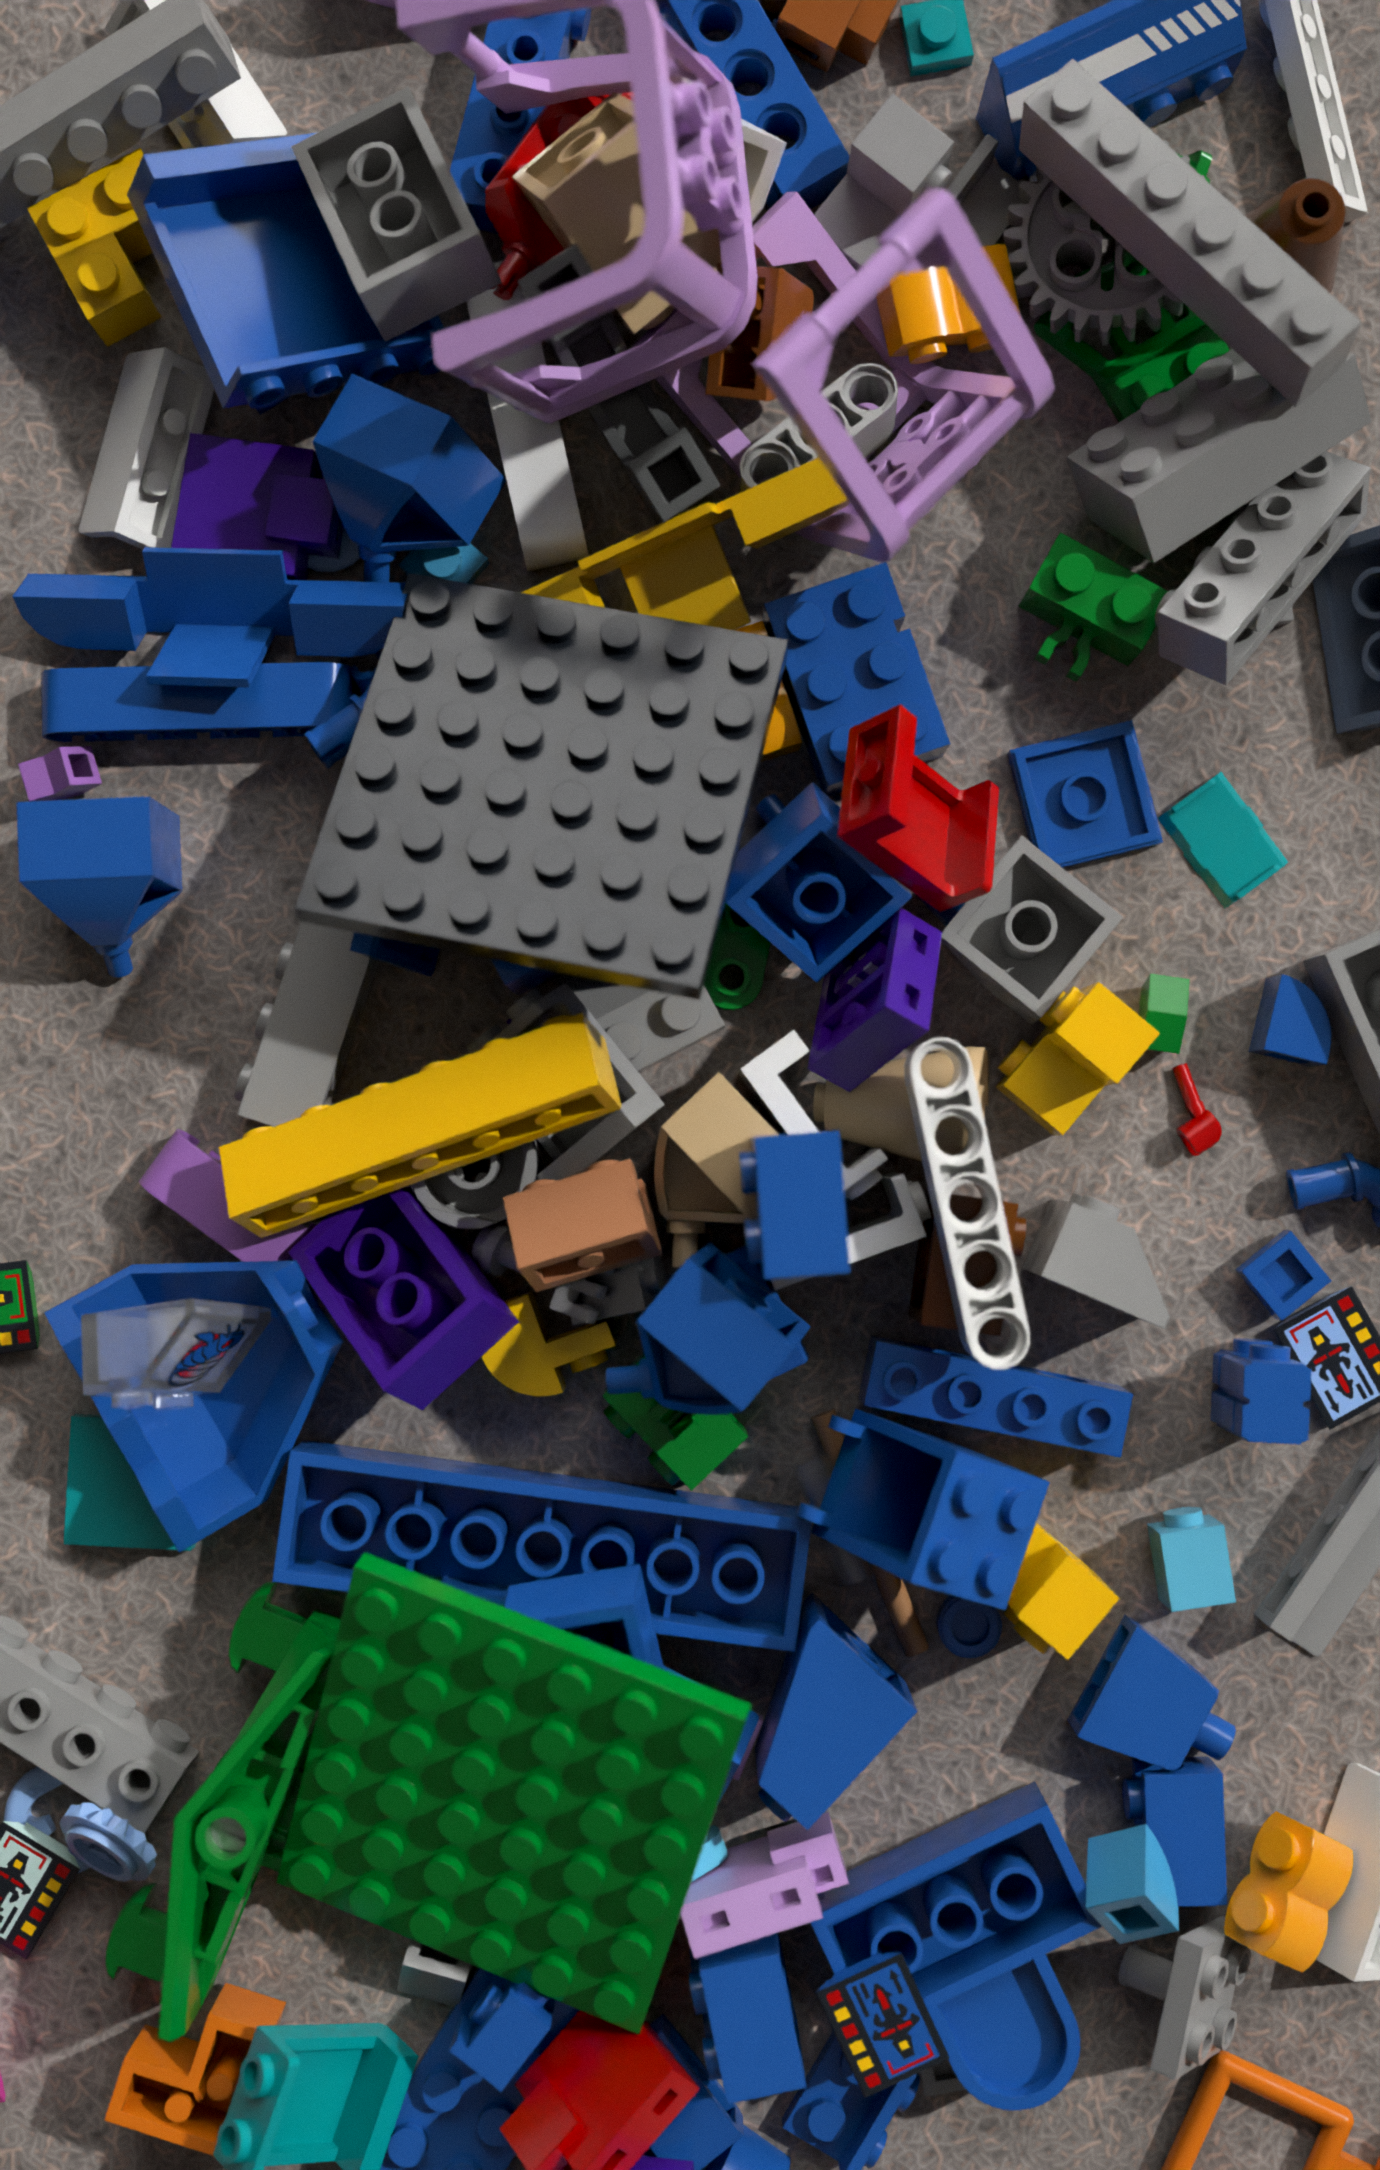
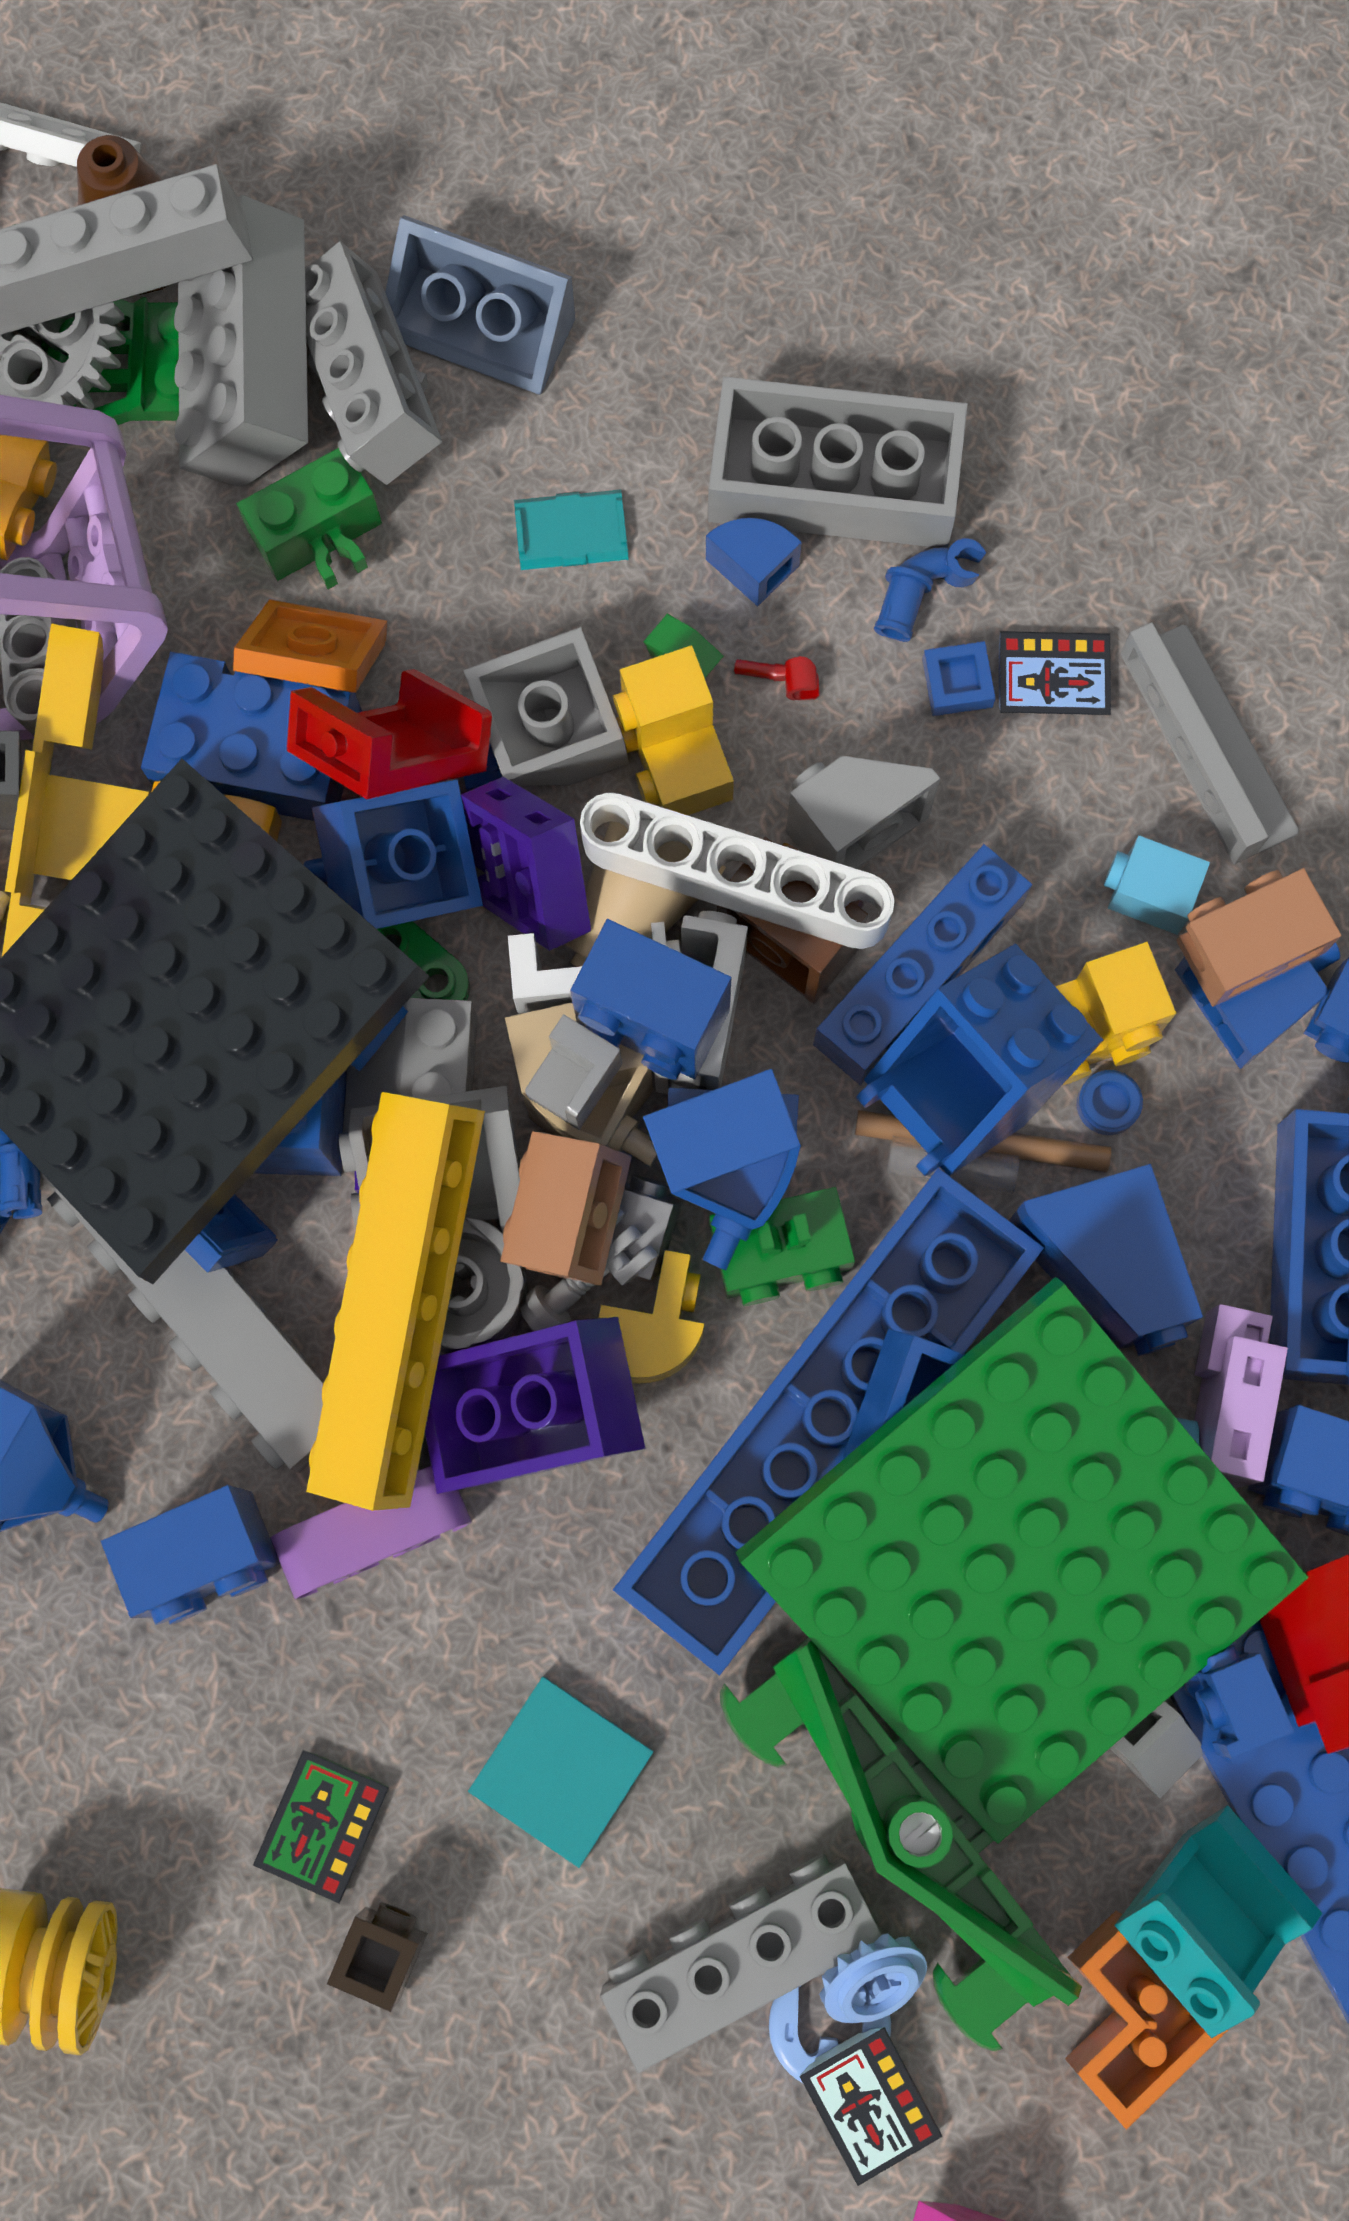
camera: 60 degrees left, 10 degrees down
(117, 1078) = (191, 1553): none -> blue brick
(166, 1351) = (456, 1643): clear slope -> none
(228, 1449) = (502, 1640): blue panel -> none
(699, 1165) = (574, 1072): none -> light grey panel
(968, 680) = (310, 646): none -> orange tile
(1086, 795) = (464, 611): blue tile -> none
(1186, 1688) = (1257, 935): none -> nougat brick
(1261, 1393) = (1042, 742): blue brick -> none

